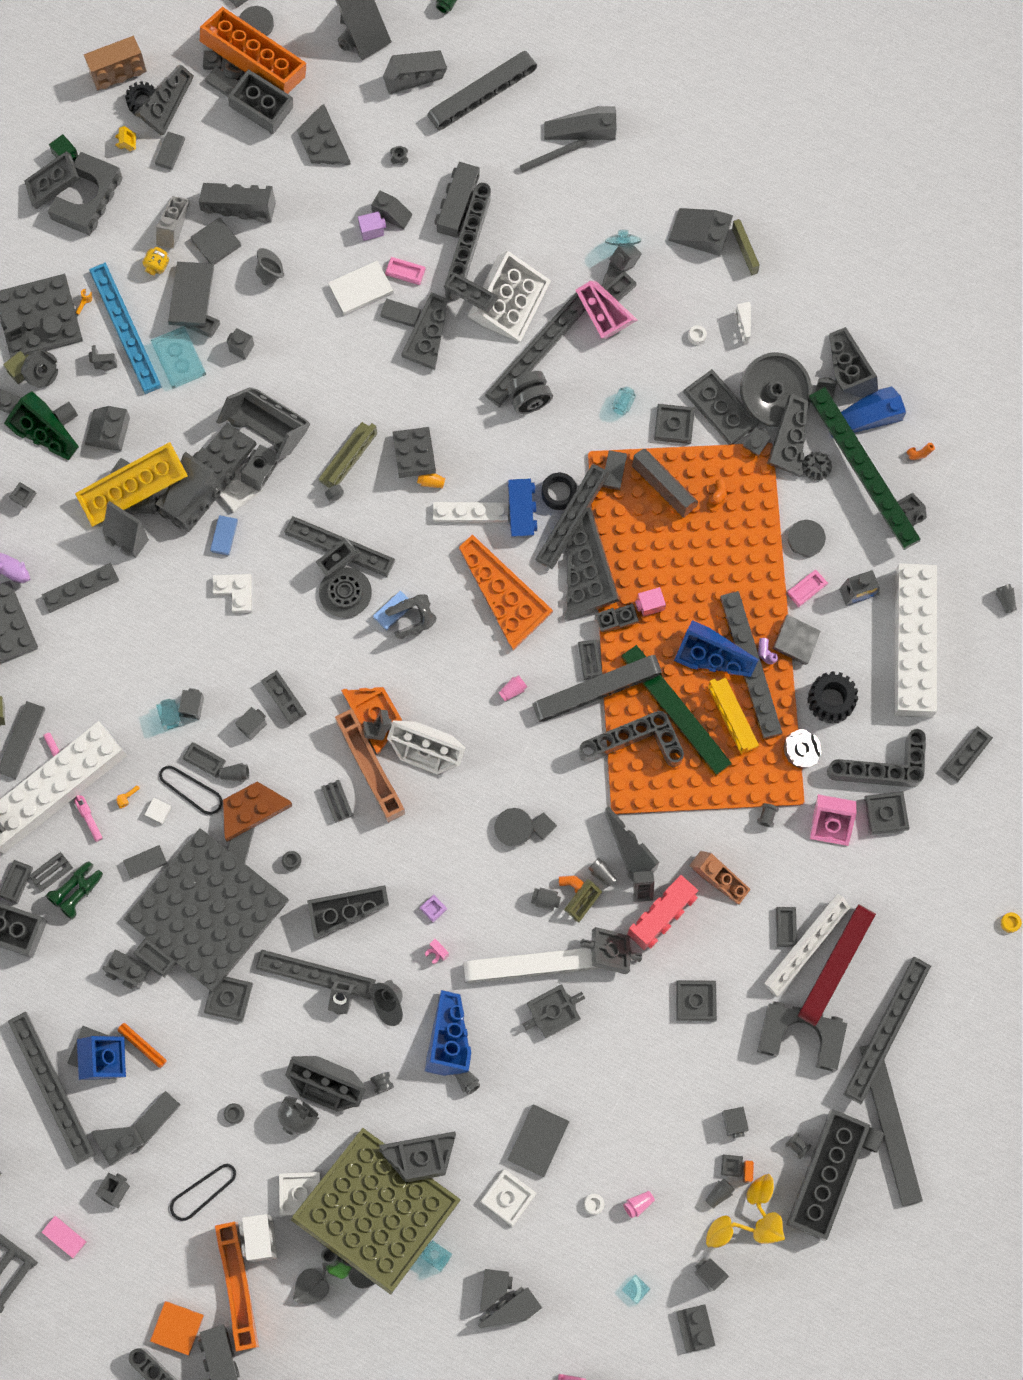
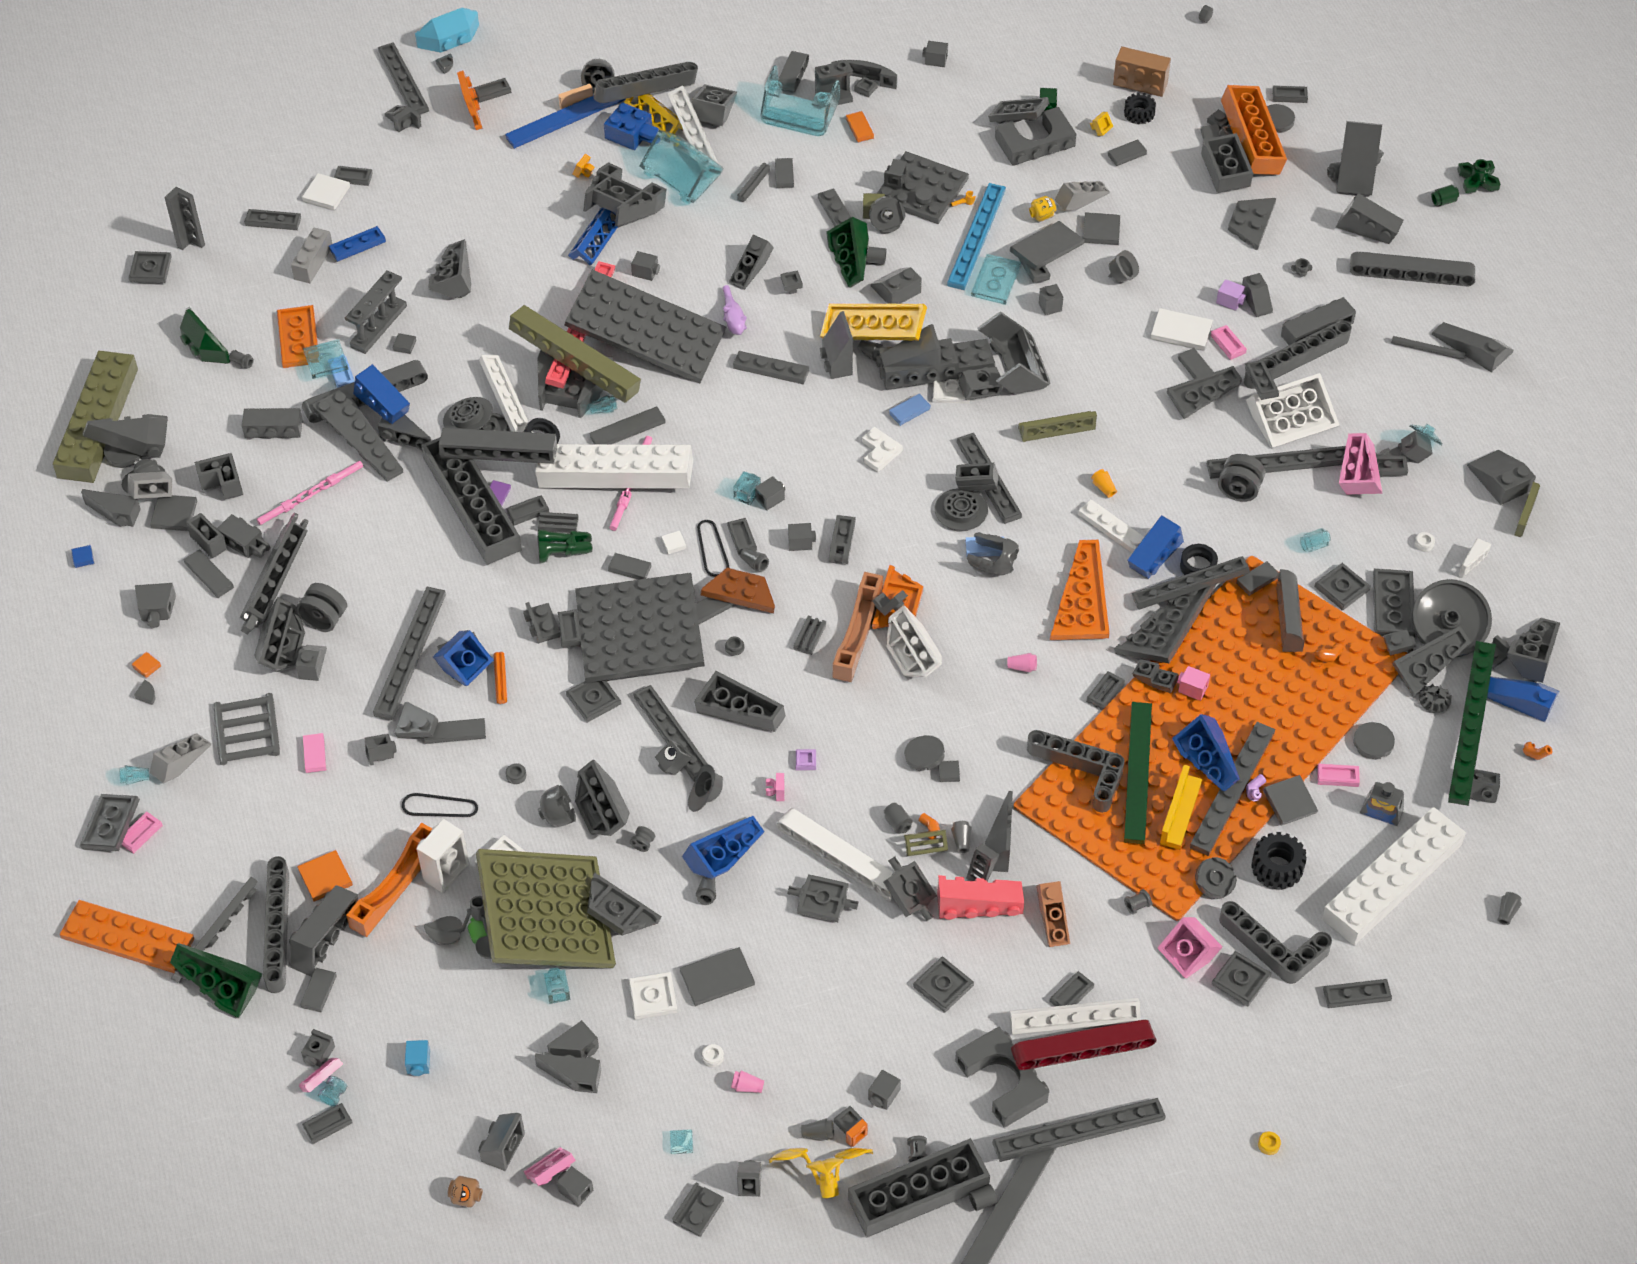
camera: 45 degrees right, 20 degrees down
(102, 361) = (938, 242): dark grey bracket -> none
(122, 798) = (656, 515): light orange hand -> none
(165, 100) = (1155, 118): dark grey wing -> none
(238, 201) = (1145, 213): dark grey wedge -> none
(334, 493) = (1020, 439): dark grey tile -> none
(414, 452) = (1109, 455): dark grey plate -> none
(597, 688) = (1088, 707): dark grey beam -> none

